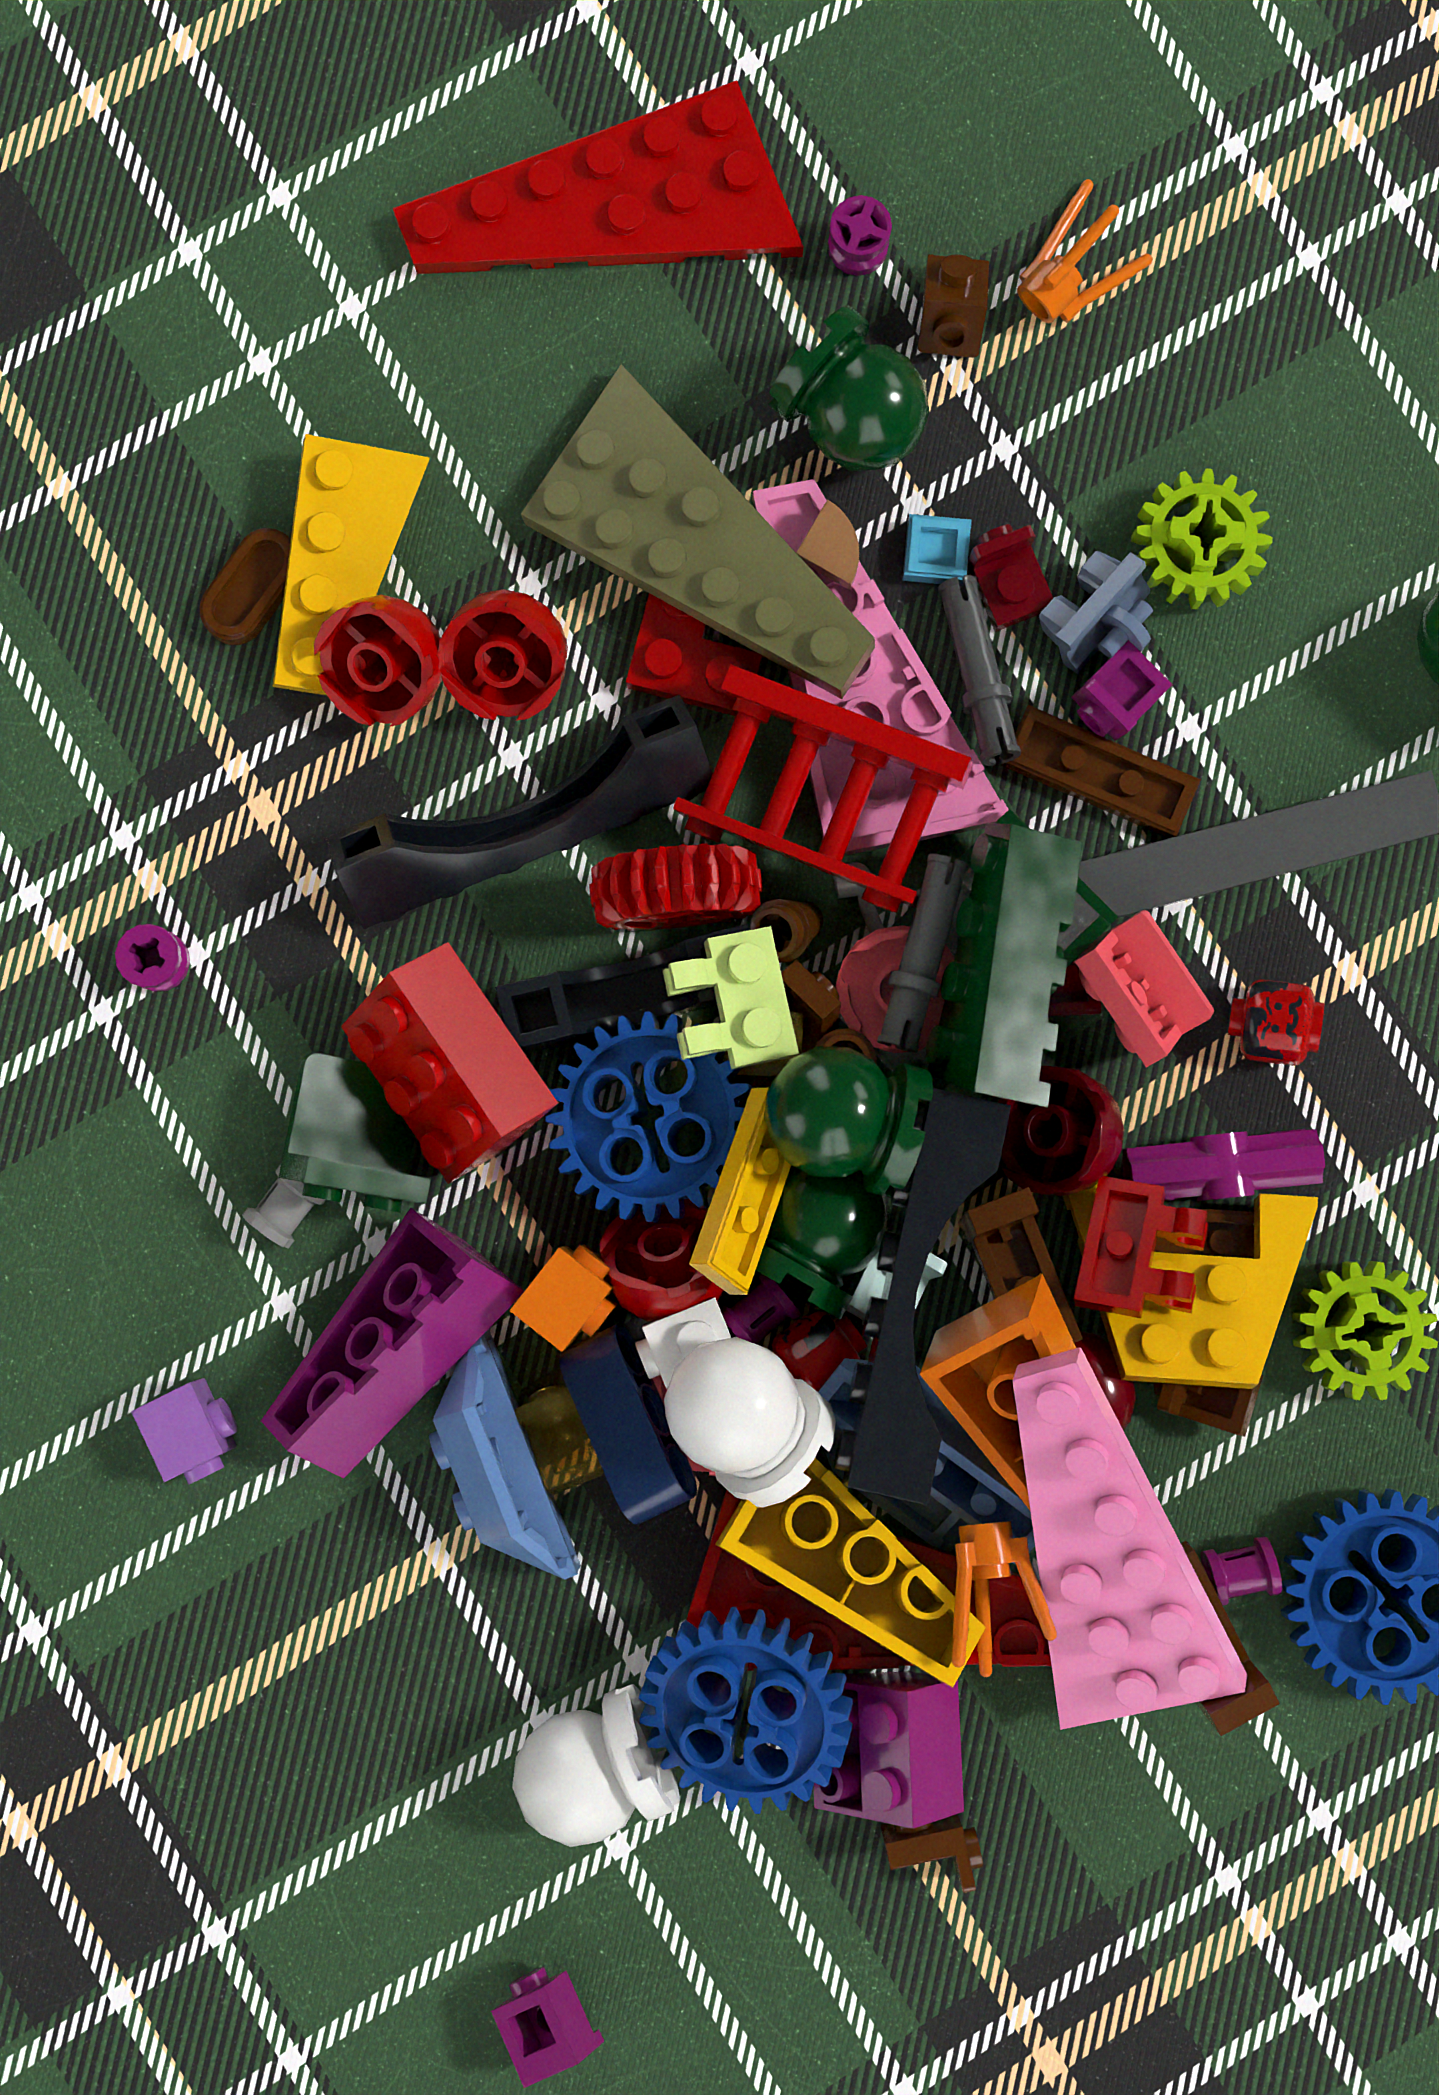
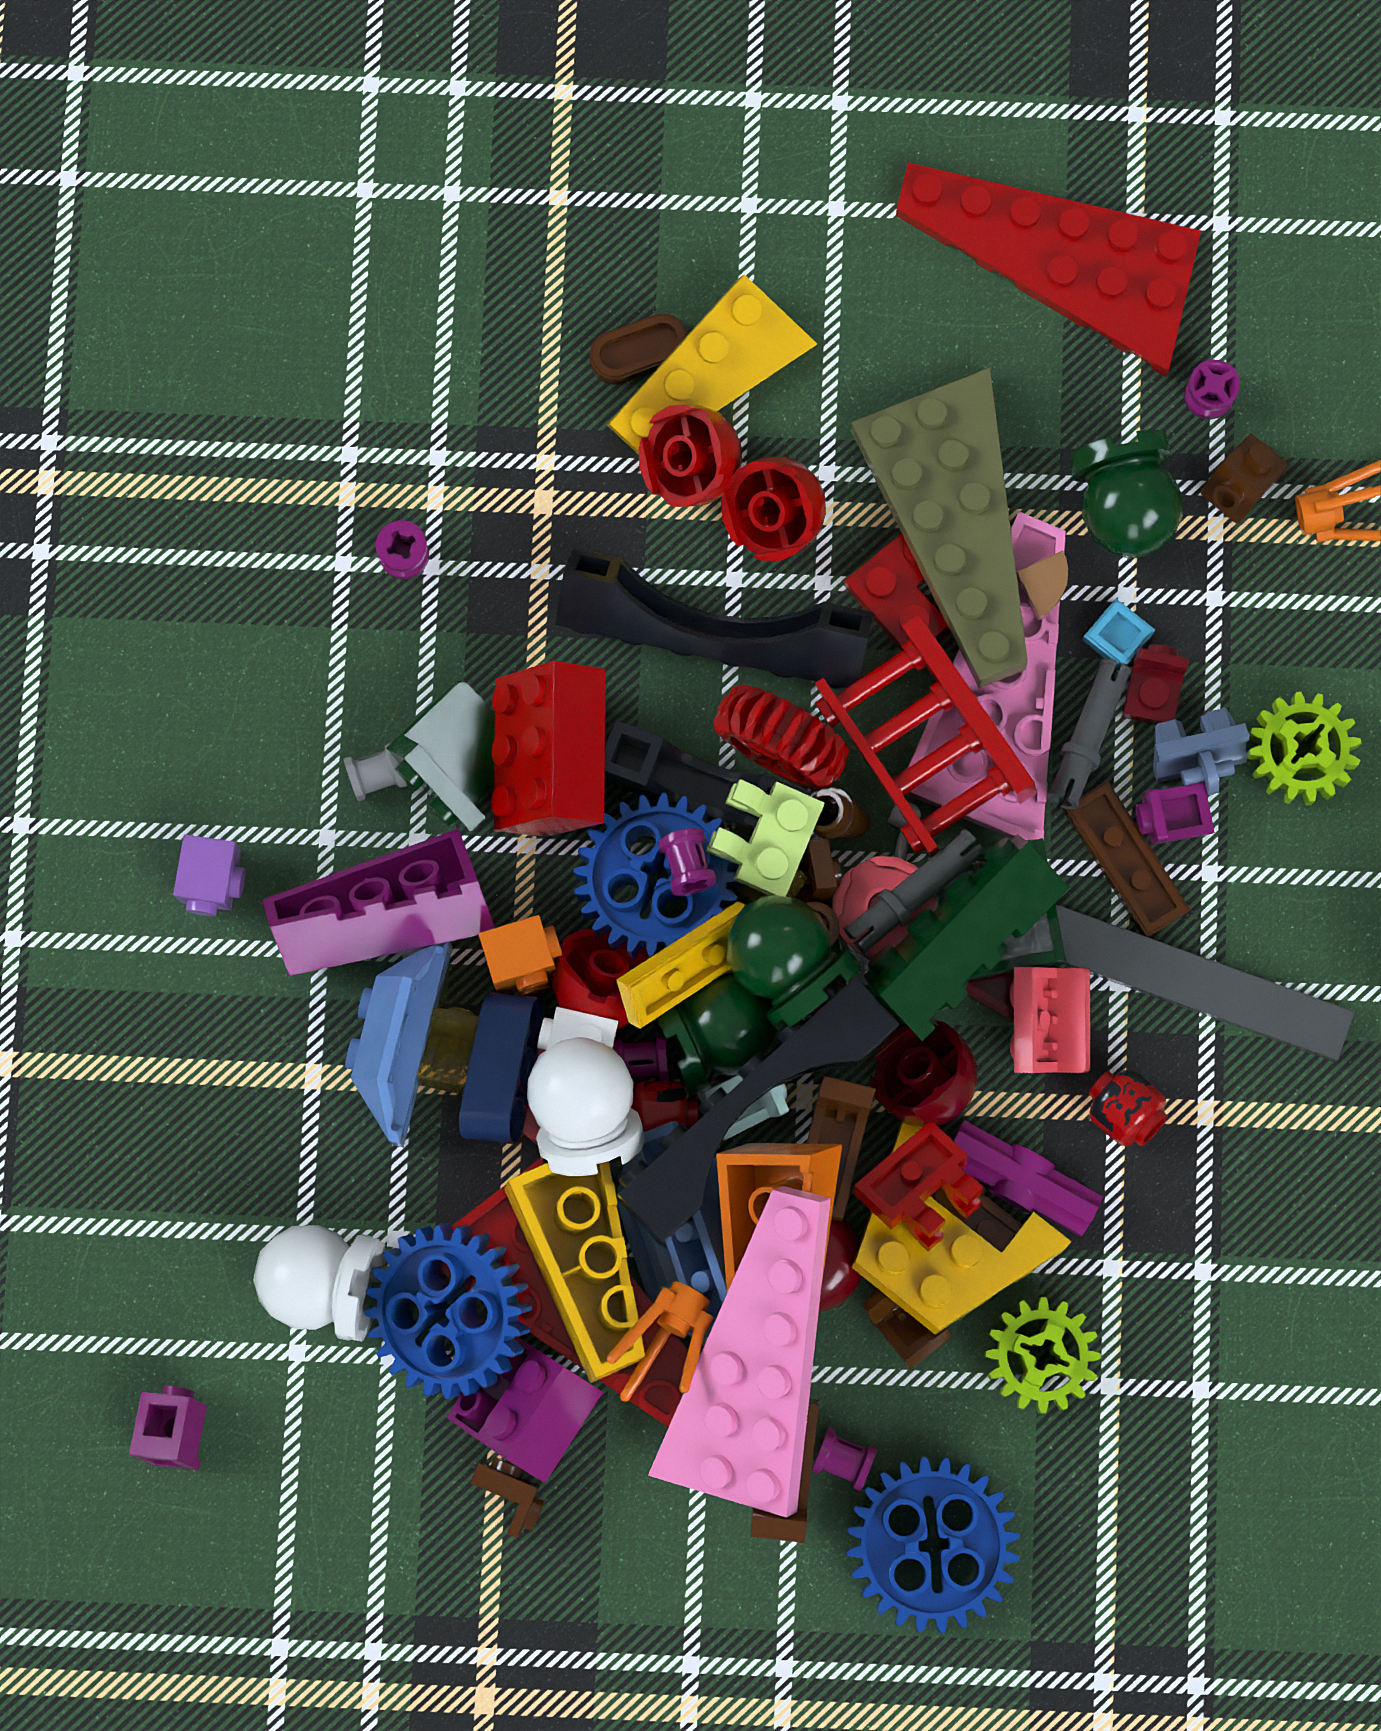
camera: 35 degrees right, 5 degrees down
(674, 1085) = (687, 861): none -> magenta bush

